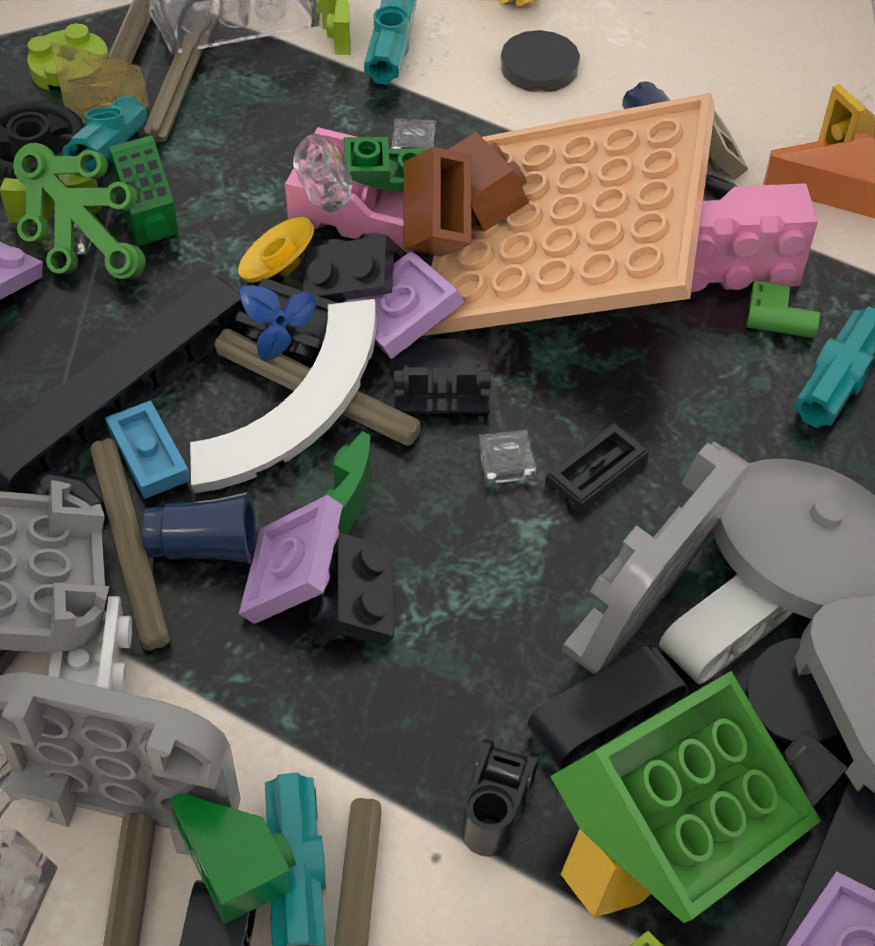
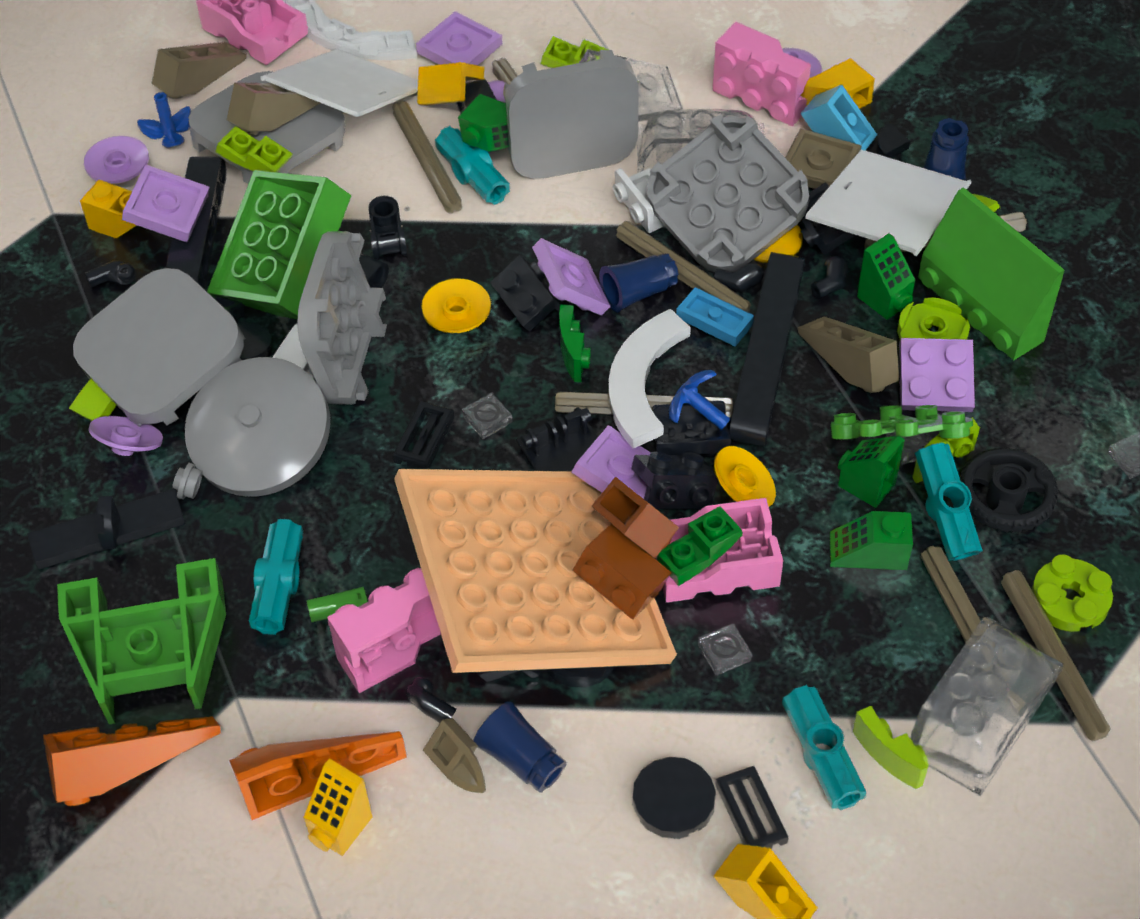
camera: 155 degrees right, 0 degrees up
(36, 328) = (854, 353): none -> dark tan slope
(95, 80) = (1009, 559): clear yellow wing -> none
(202, 150) = (873, 542): none -> green slope
(322, 172) = (722, 488): clear plate -> none
(469, 591) = (456, 305): none -> yellow dish
(478, 50) = (764, 840): none -> black tile

